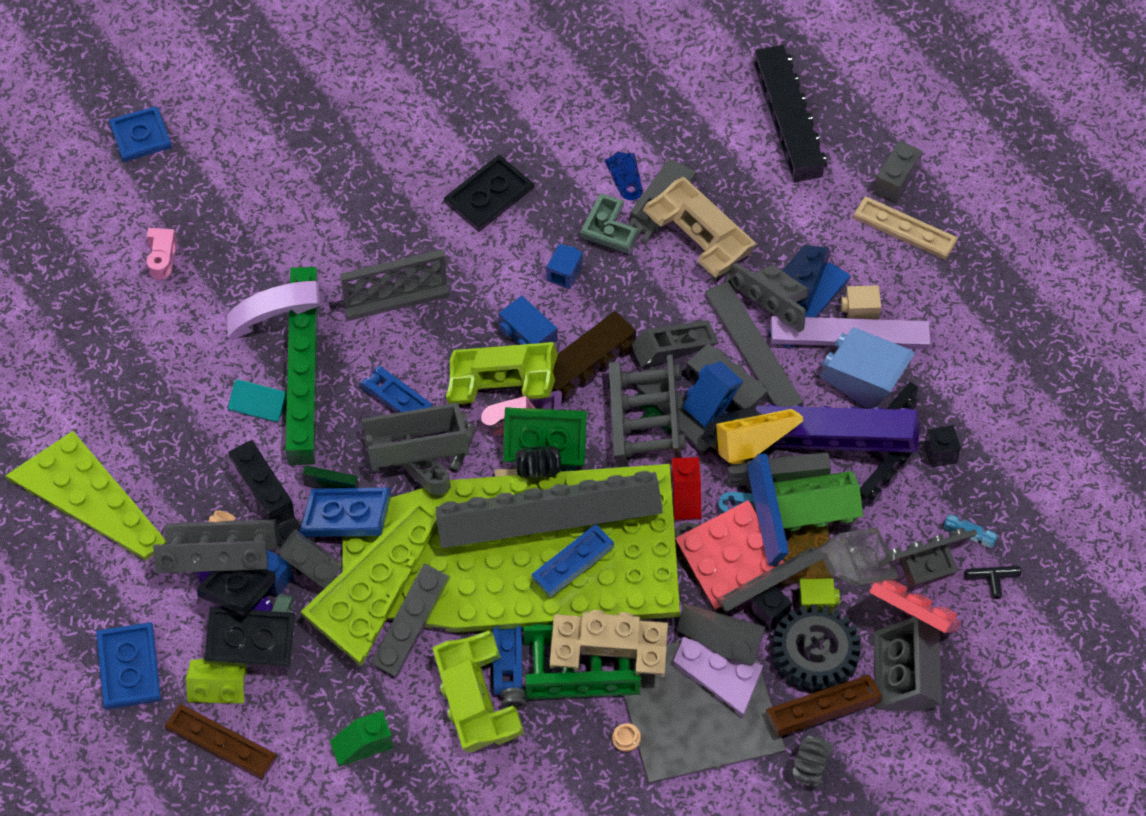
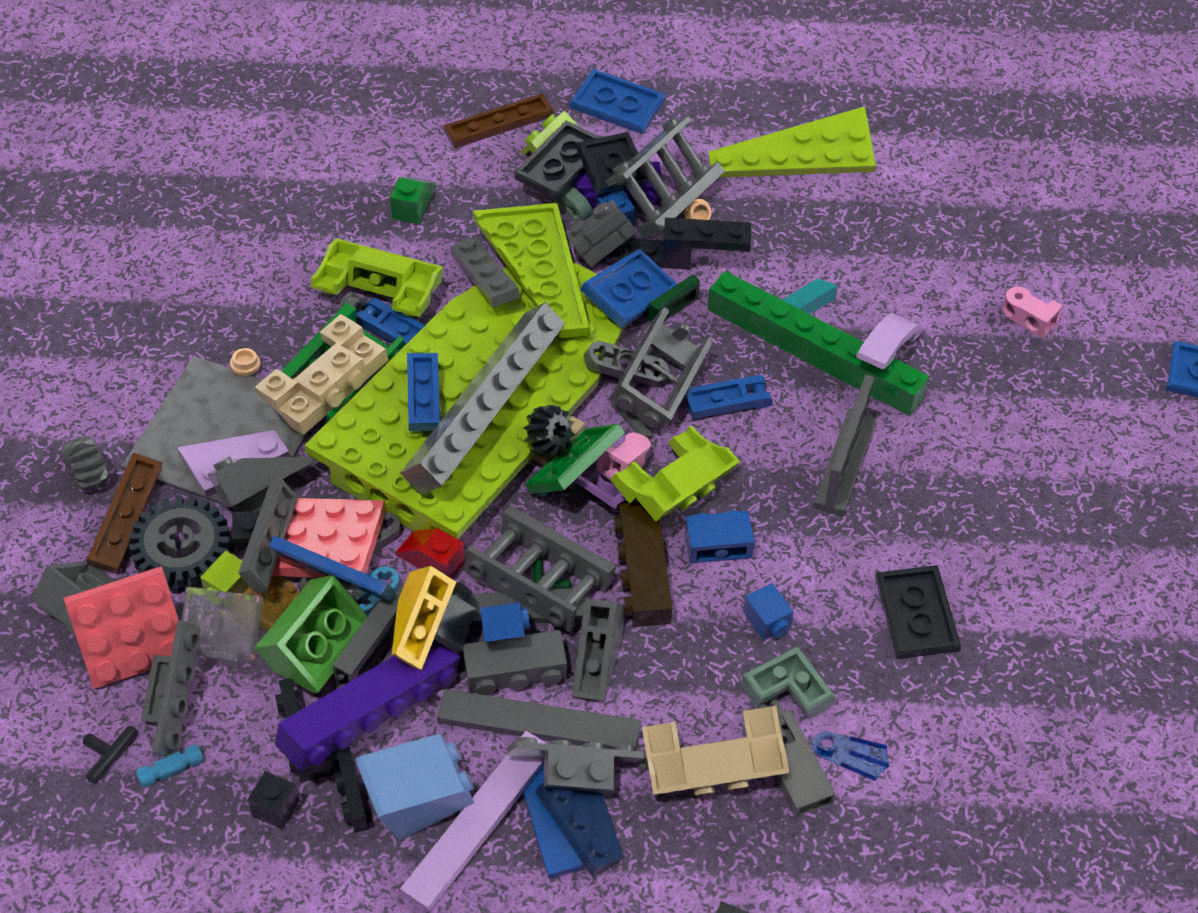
camera: 125 degrees right, 5 degrees down
(861, 302) = (501, 854): tan brick -> none

